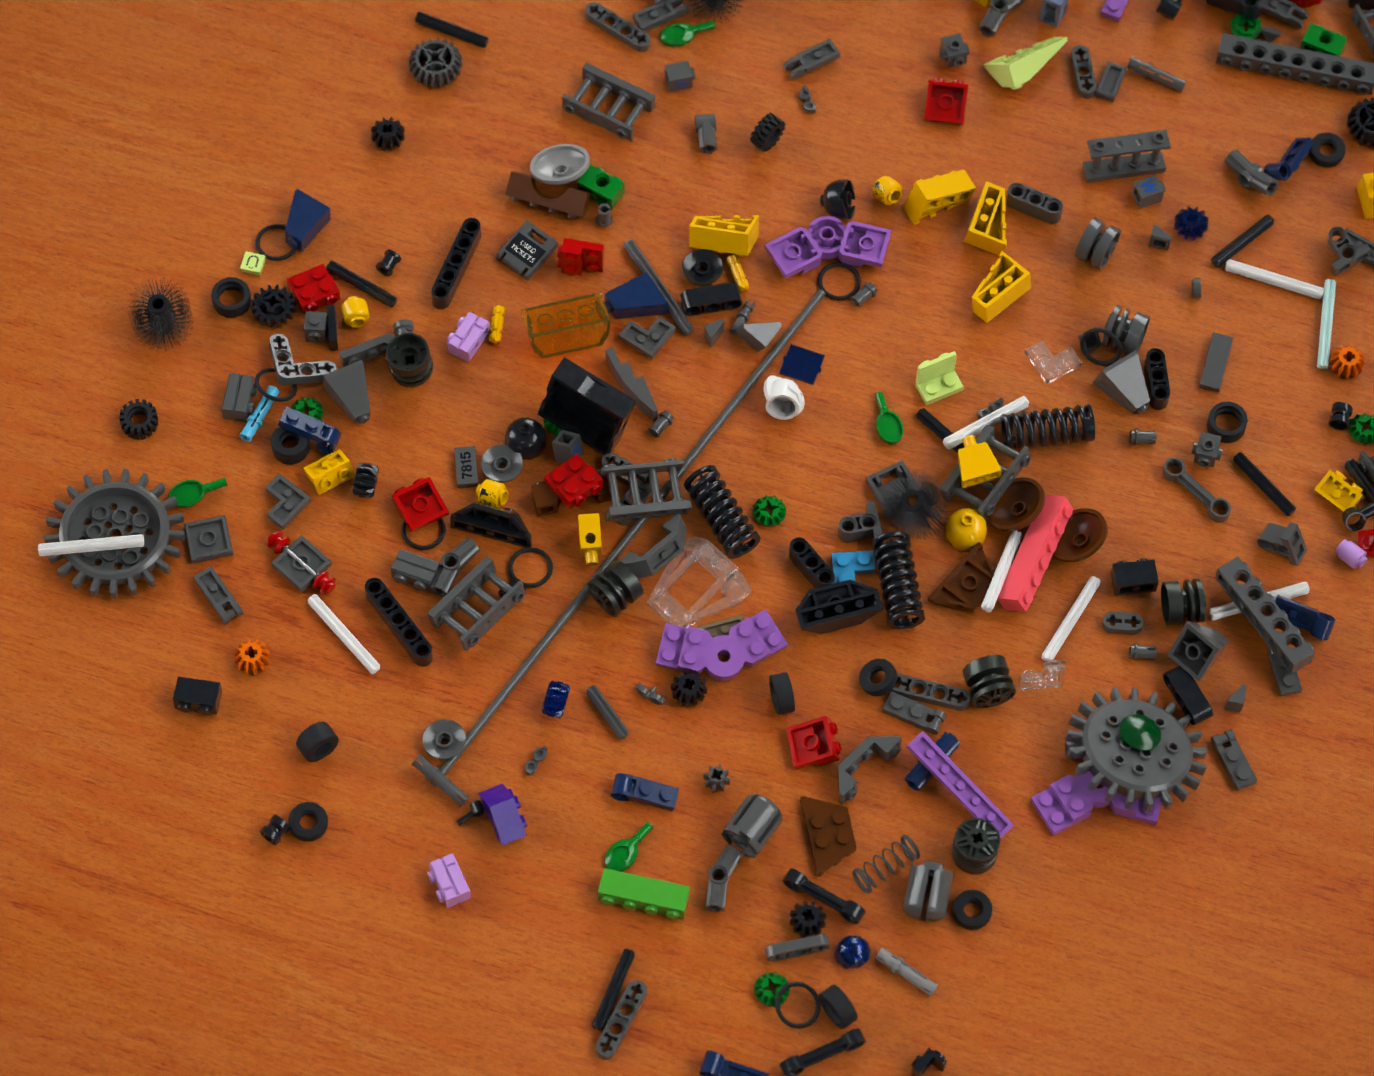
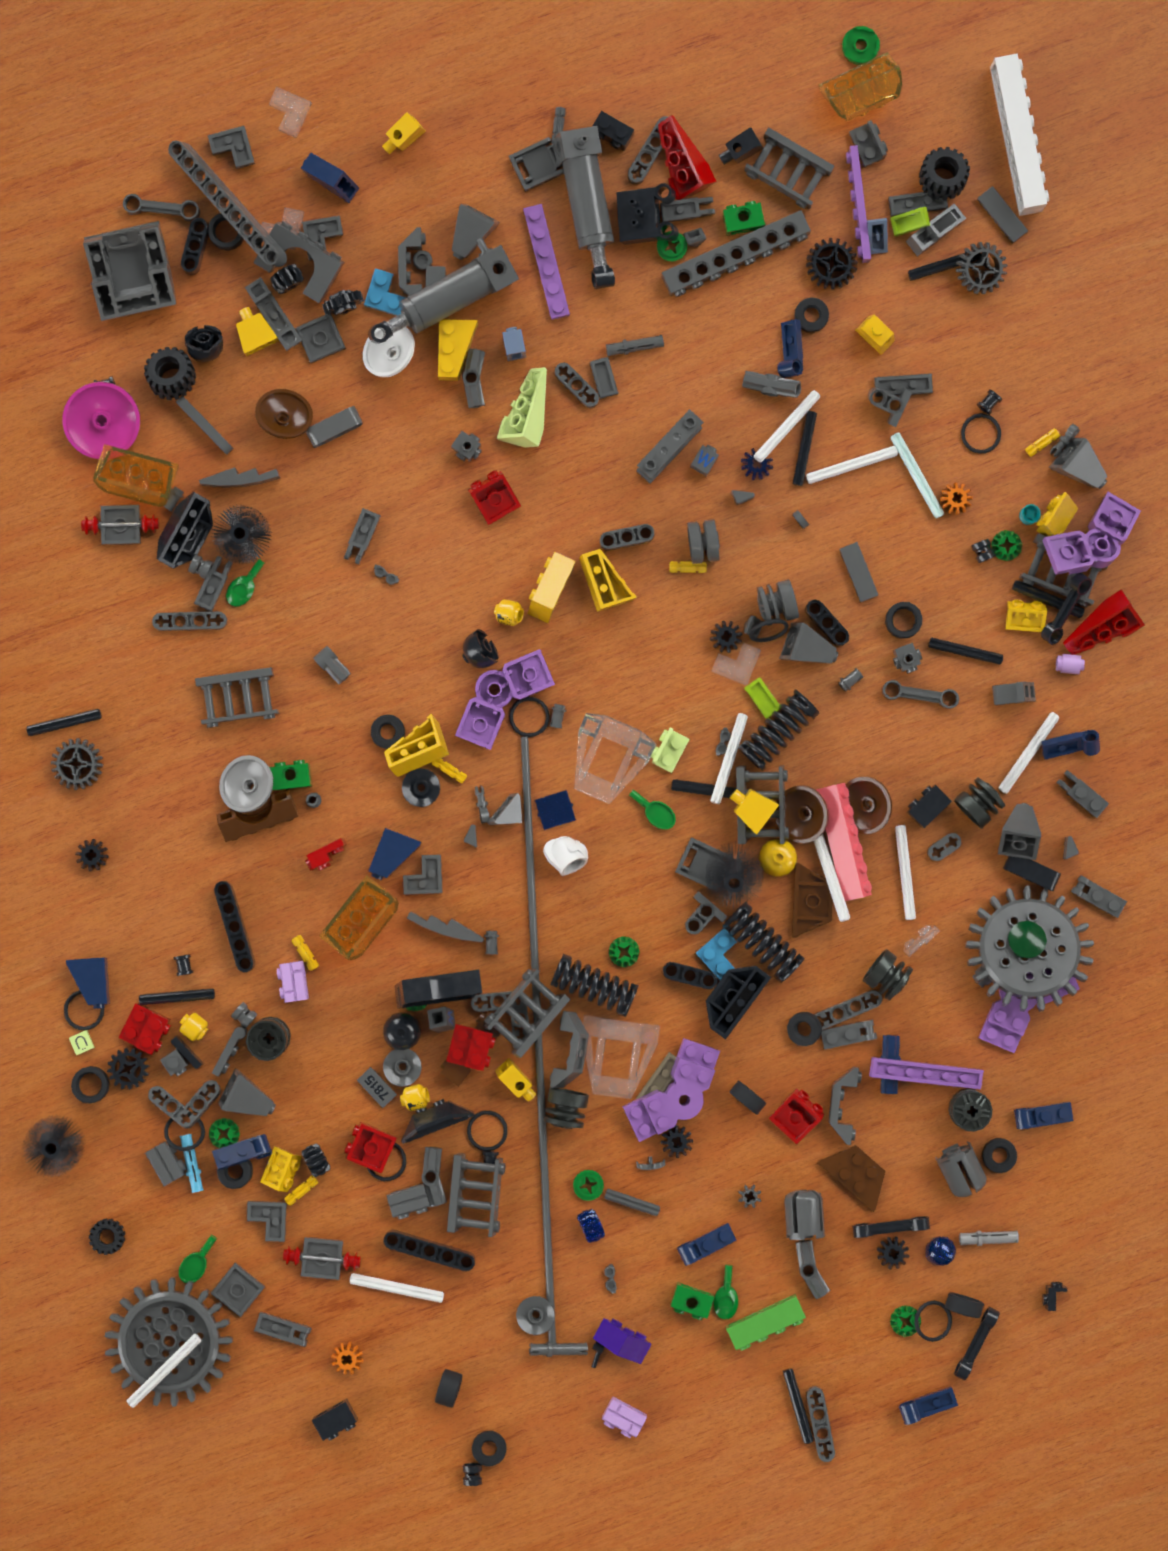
camera: 35 degrees left, 25 degrees up
(331, 500) = (301, 1190): none -> yellow axle
(525, 252) = (278, 877): dark grey container -> none
(577, 662) = (596, 1189): none -> green gear
(588, 816) = (683, 1293): none -> green brick
(644, 266) = (399, 827): dark grey axle -> none
(679, 76) = (273, 631): dark grey brick -> none
(711, 299) = (447, 809): black beam -> none
(713, 200) = (379, 723): none -> black tyre
(767, 132) = (381, 633): black tyre -> none
(797, 947) = (901, 1279): dark grey beam -> none
(904, 338) = (605, 726): none -> clear windscreen
(907, 850) = (913, 1196): dark grey piece -> none
(1001, 288) = (657, 635): yellow wedge -> none
(1041, 903) = (1043, 1115): none -> dark blue plate
(1053, 395) = (762, 697): none -> lime tile
(1059, 331) = (720, 632): none -> black gear
(1069, 260) = (687, 567): none -> yellow axle
(1144, 652) = (974, 861): dark grey pin -> none
(1240, 210) = (788, 424): none -> white axle
(1291, 658) = (997, 756): dark grey brick -> none

